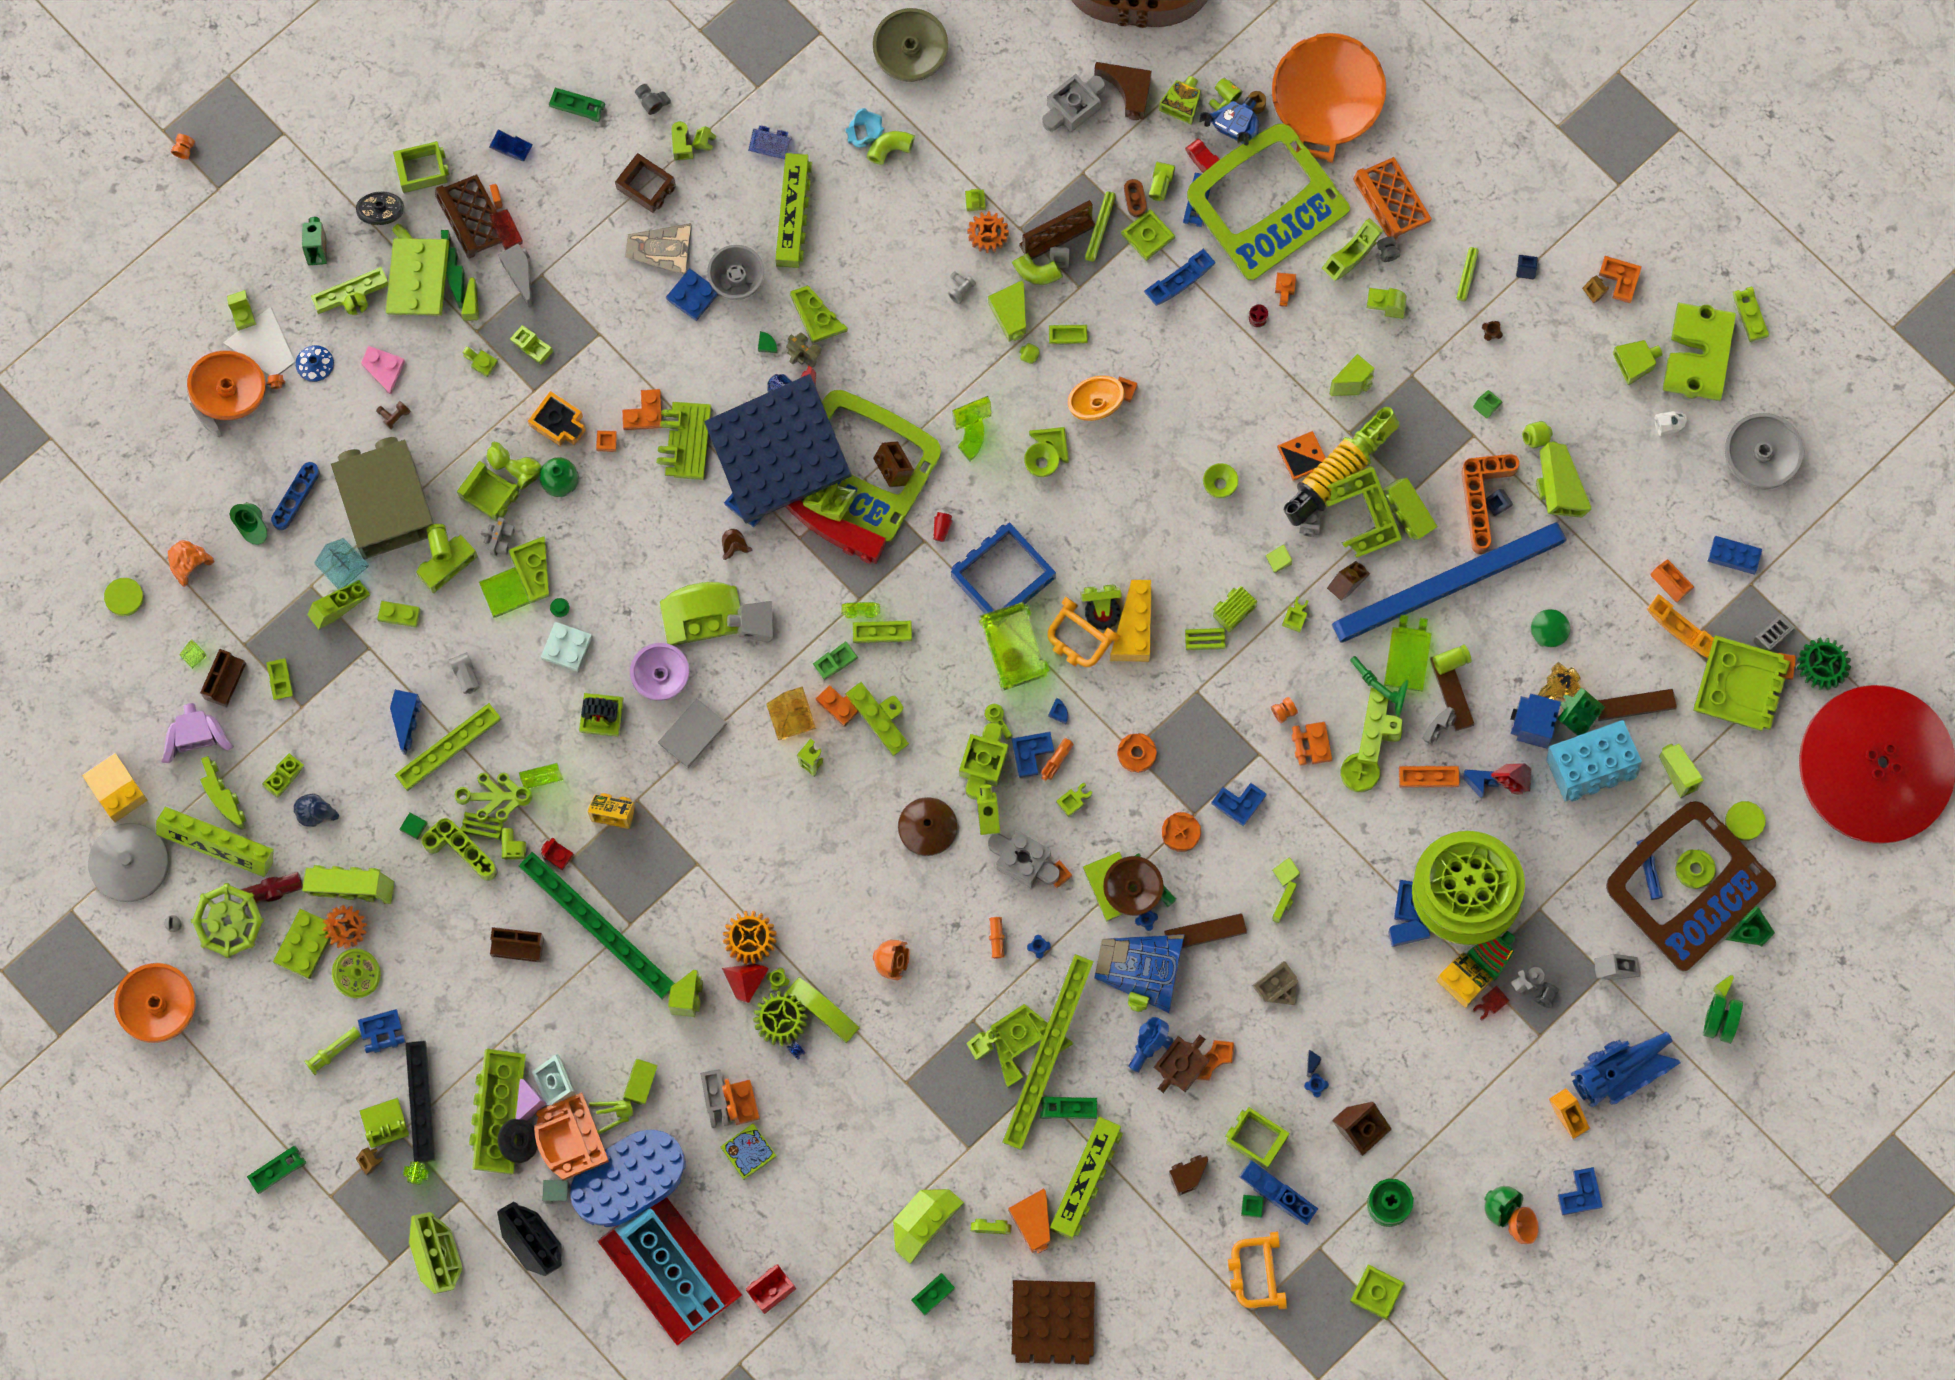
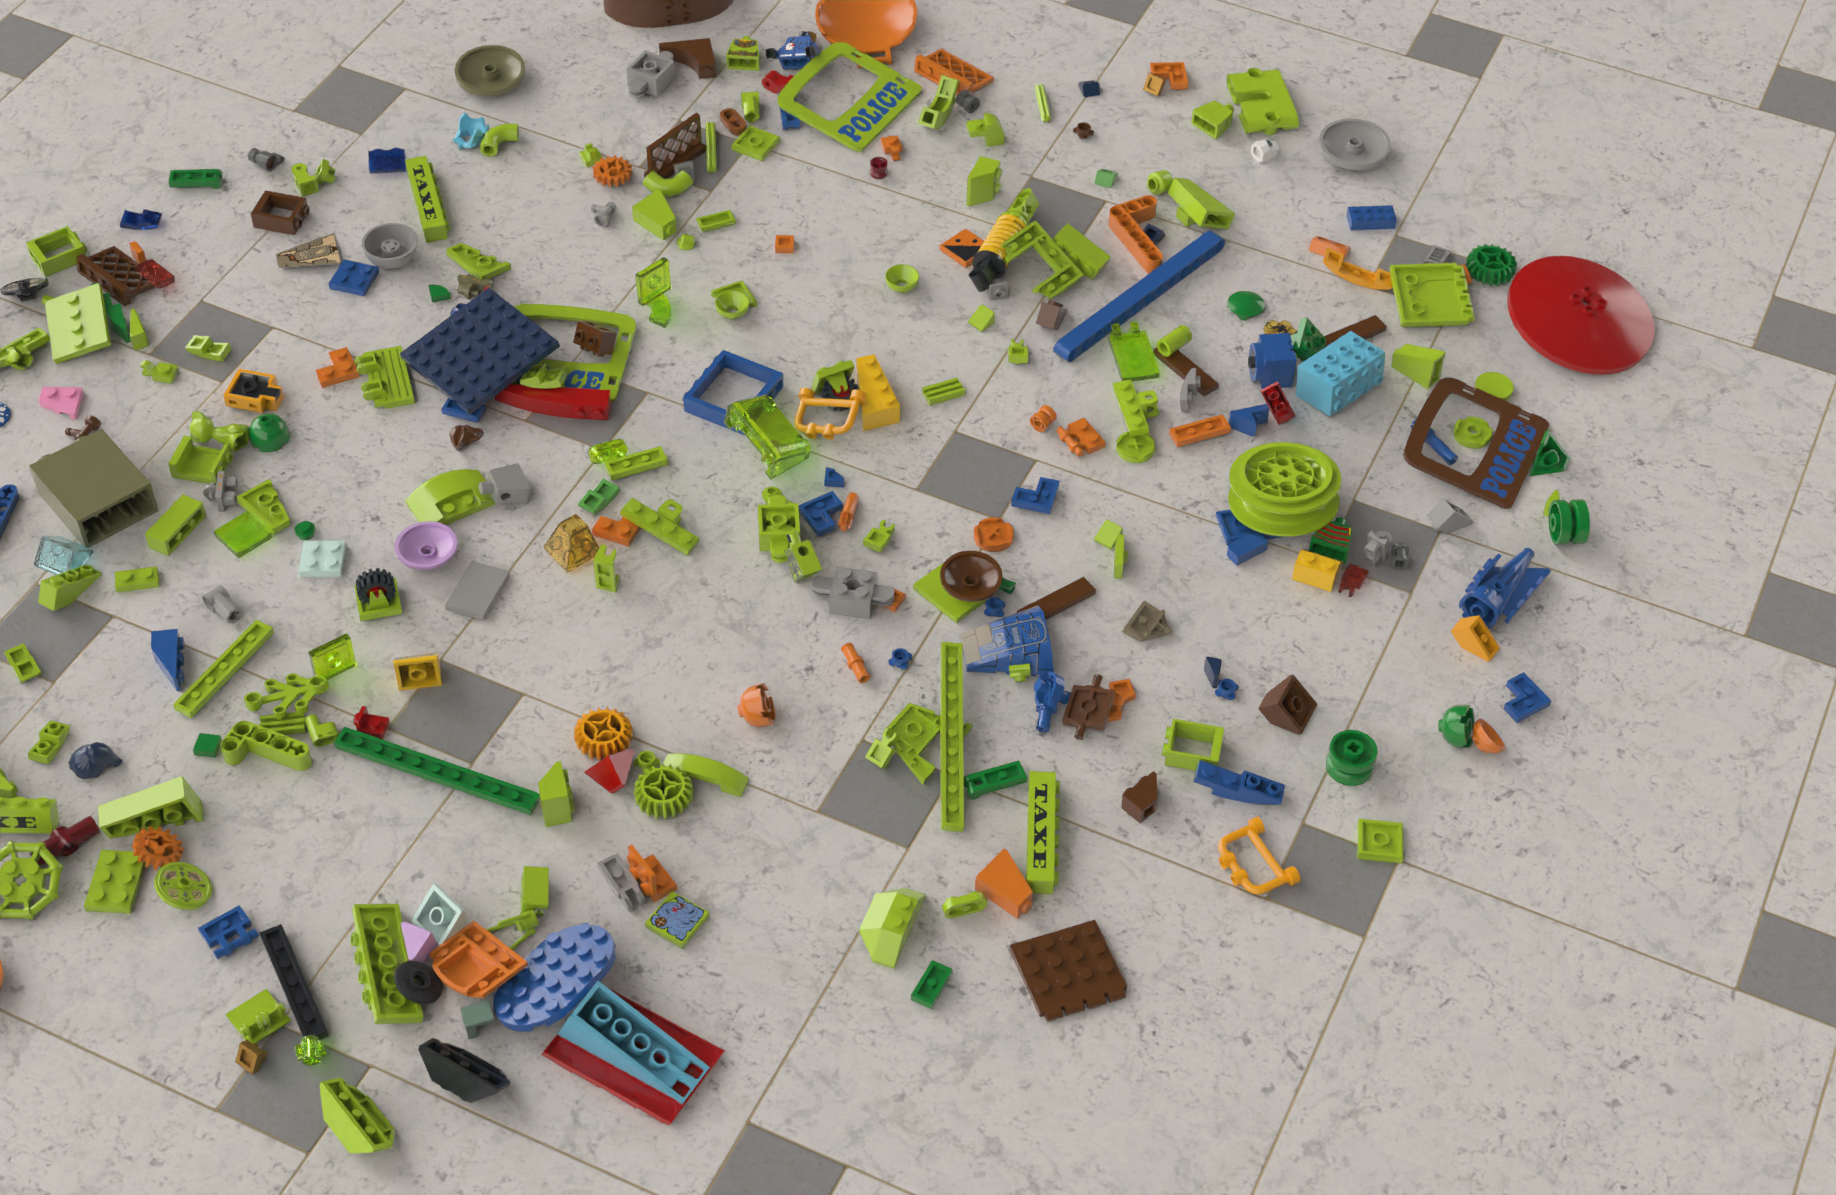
camera: 25 degrees left, 25 degrees down
(276, 1170) = (143, 1100): green plate -> none
(352, 1034) = (170, 974): lime pin -> none
(439, 542) = (162, 501): lime piece -> none
(516, 944) = (354, 809): reddish brown piece -> none
(518, 268) = (173, 295): light grey slope -> none
(606, 441) = (307, 395): orange plate -> none
(770, 1288) = (753, 1034): red bracket -> none
(795, 1050) = (691, 814): clear blue bush -> none
(927, 839) = (745, 599): reddish brown dish -> none
(942, 525) = (659, 373): red cone -> none
(1096, 398) = (762, 250): light orange dish -> none
(1132, 763) = (918, 496): orange tile -> none
(1180, 279) = (795, 166): blue slope -> none
(1227, 91) = (778, 38): lime piece -> none
(1235, 608) = (960, 360): lime brick -> none
(1252, 1206) = (1218, 807): green tile -> none
(1371, 680) = (1142, 377): green dish -> none
(1750, 314) = (1289, 72): lime plate -> none

